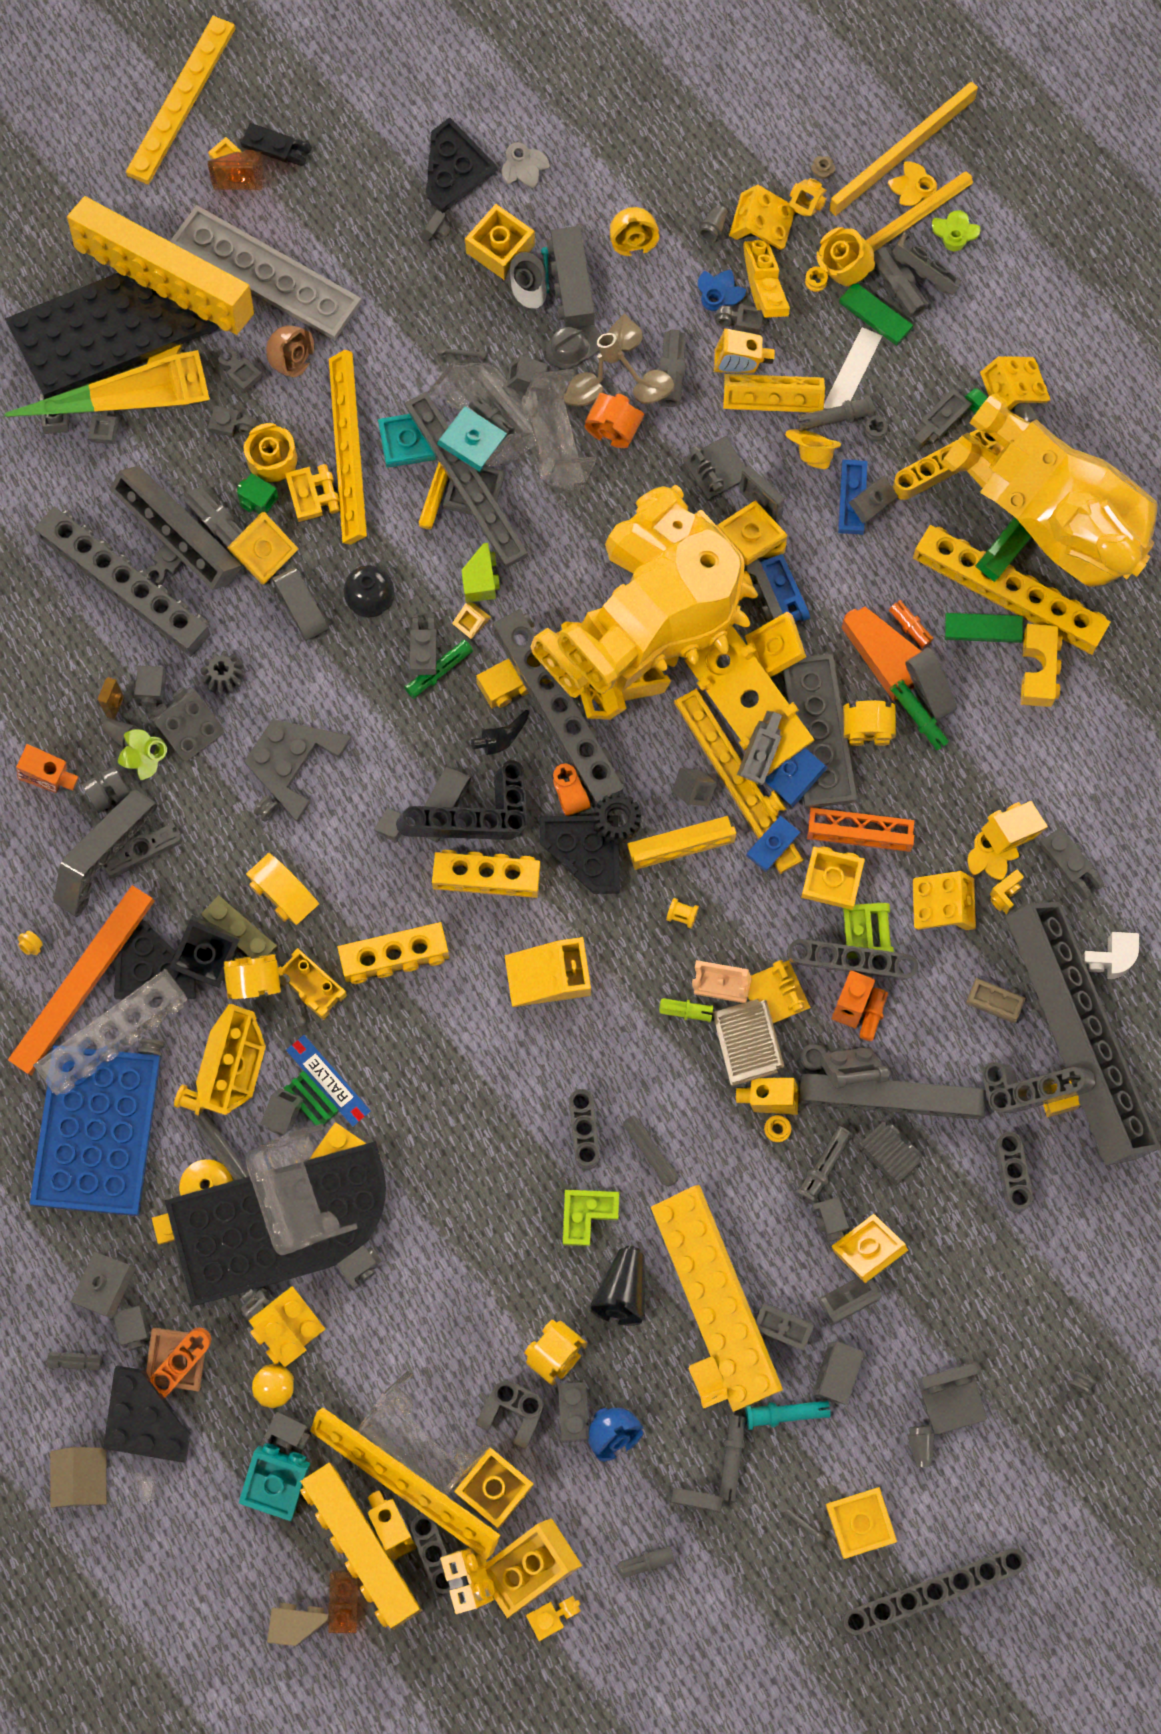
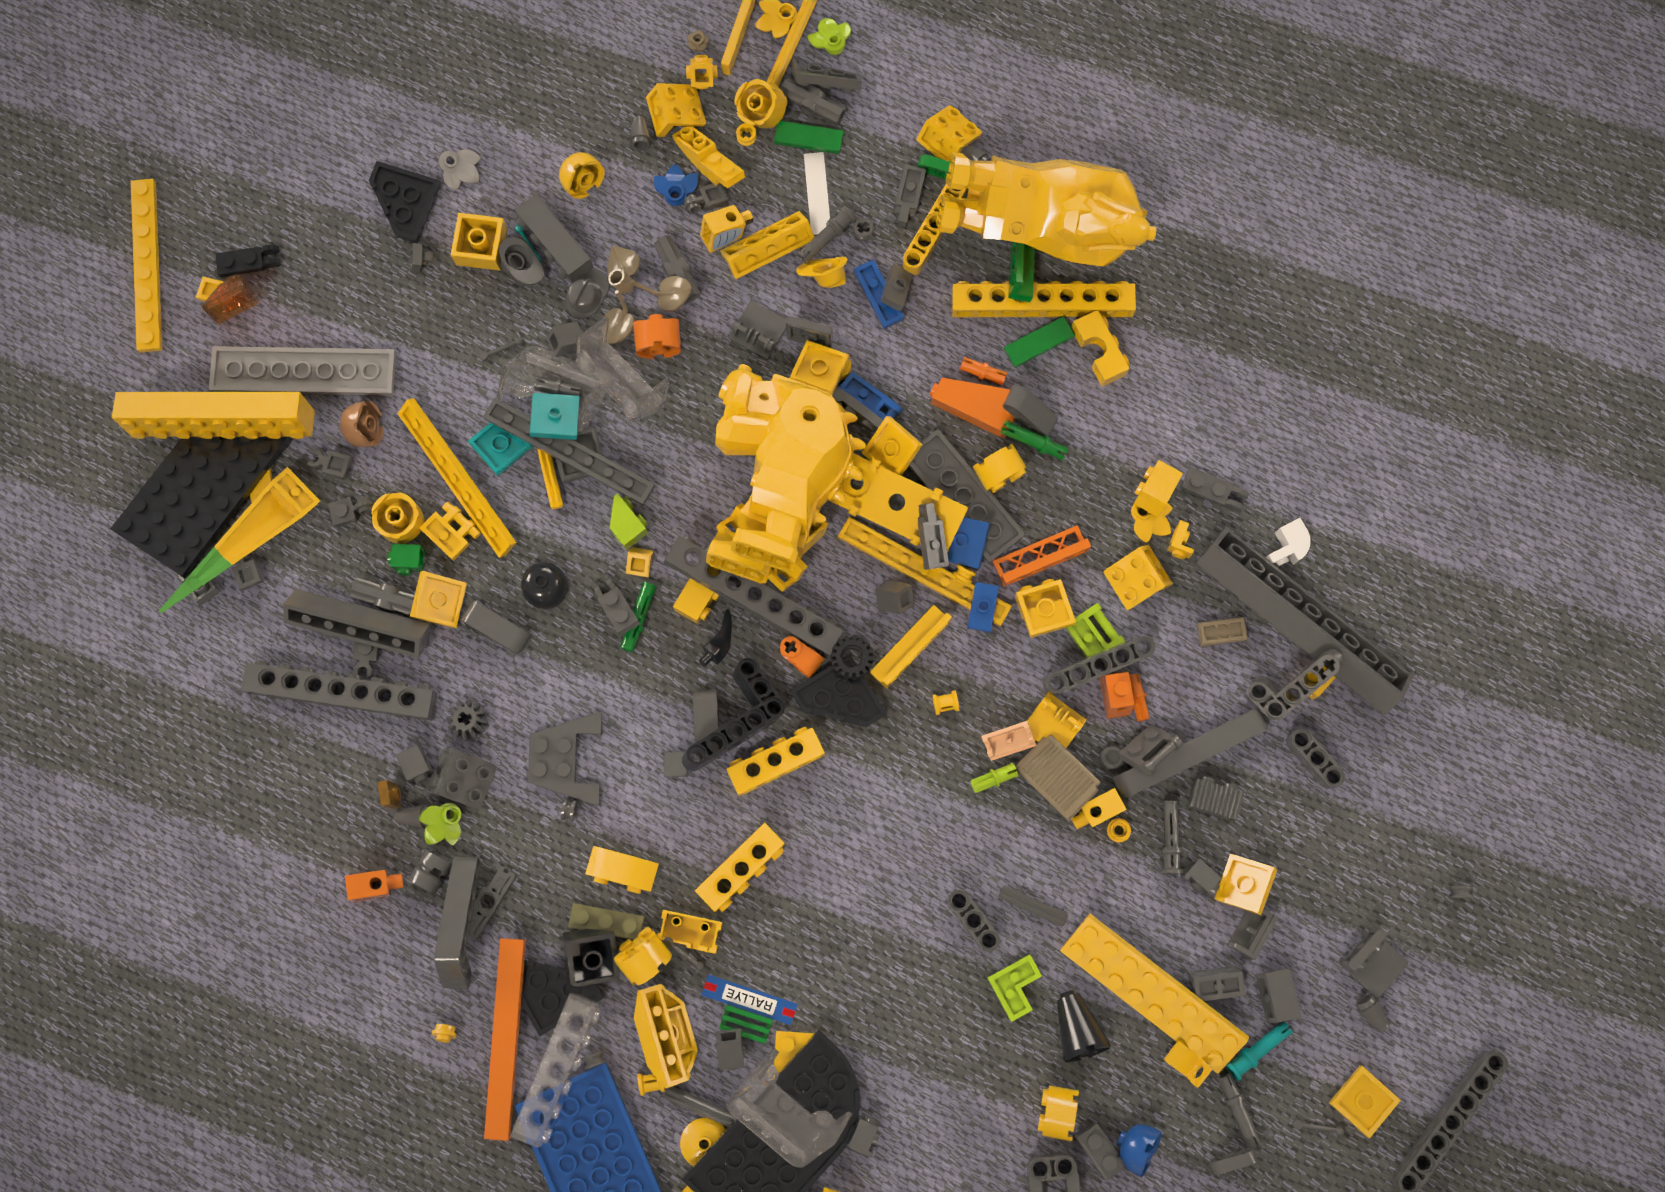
camera: 30 degrees left, 5 degrees up
(548, 973) = (871, 812): yellow slope -> none

